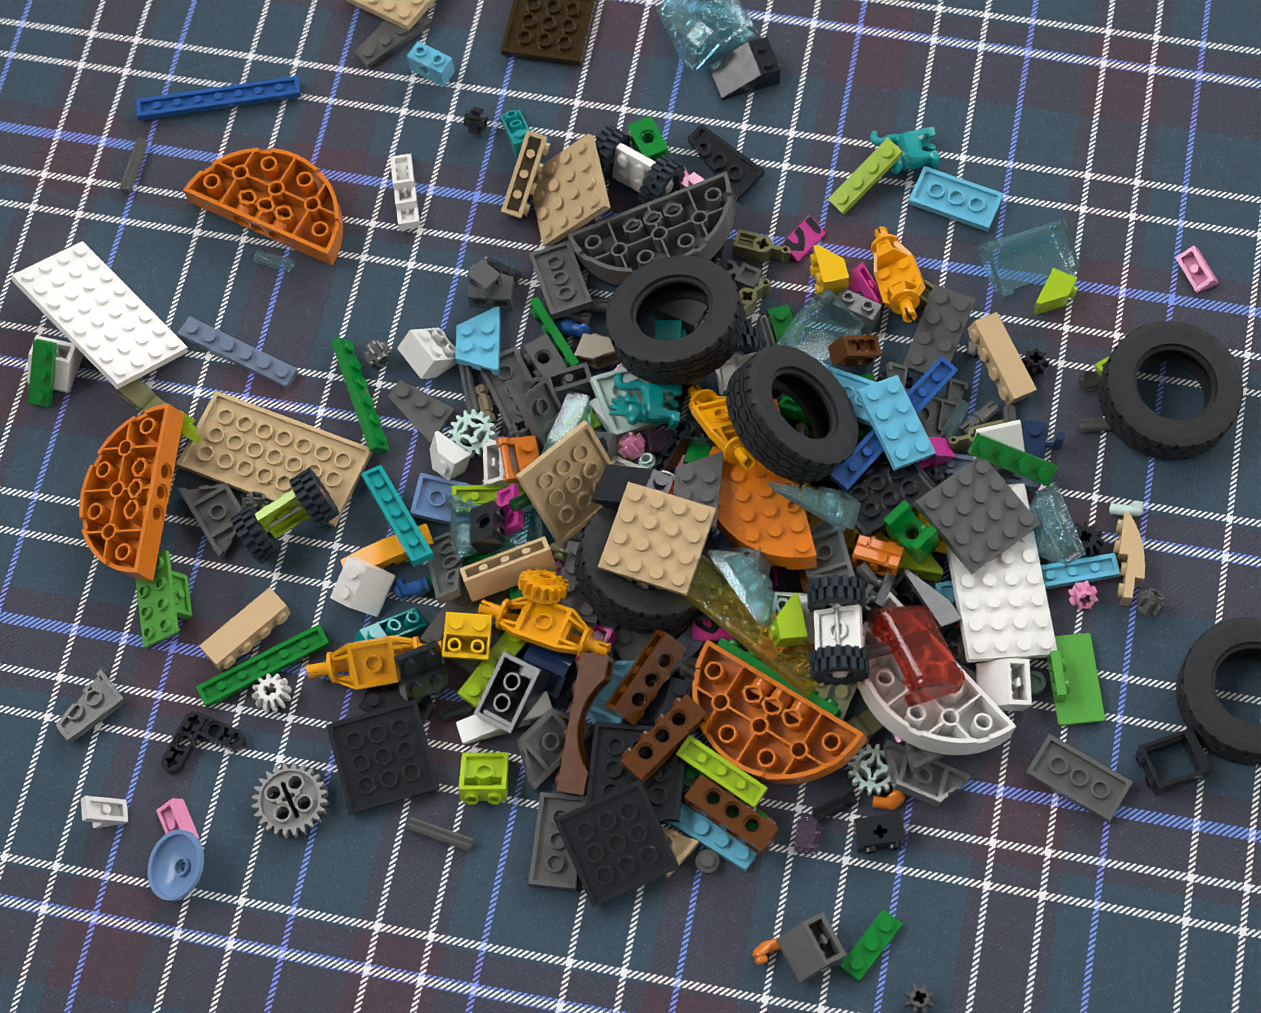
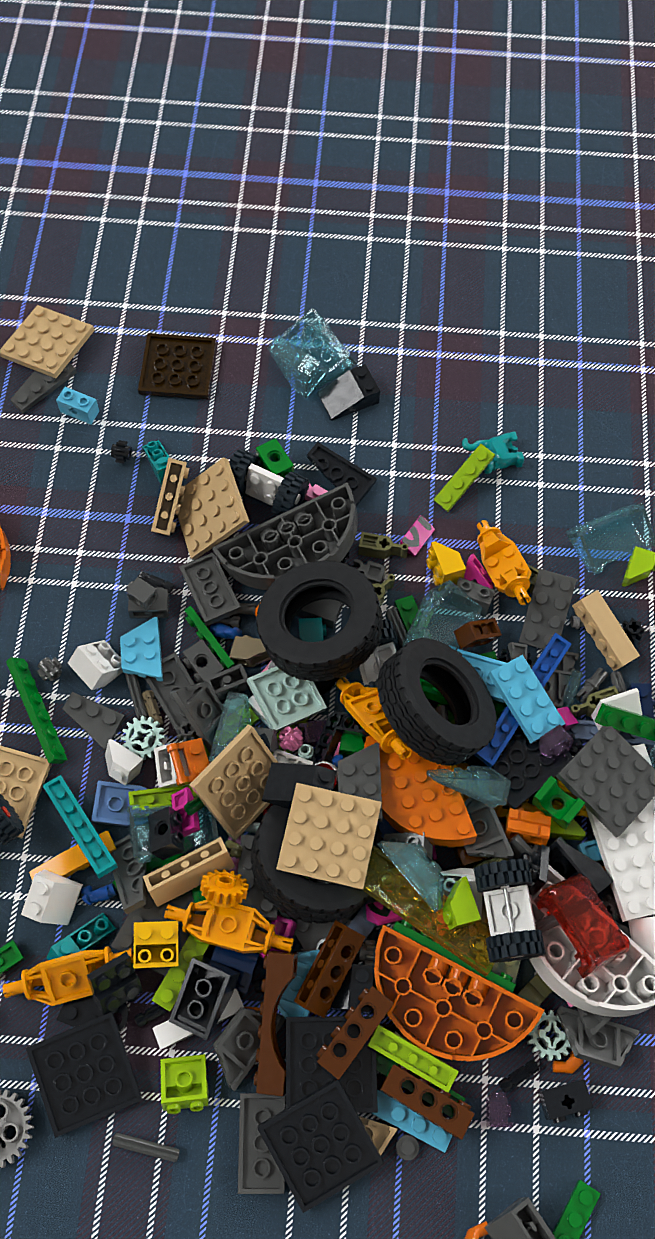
camera: 15 degrees left, 0 degrees up
(405, 192) = (64, 519): white slope -> none
(653, 404) = (307, 698): teal animal -> none
(919, 470) = (555, 742): none -> clear purple brick
(956, 198) = (541, 491): medium azure plate -> none

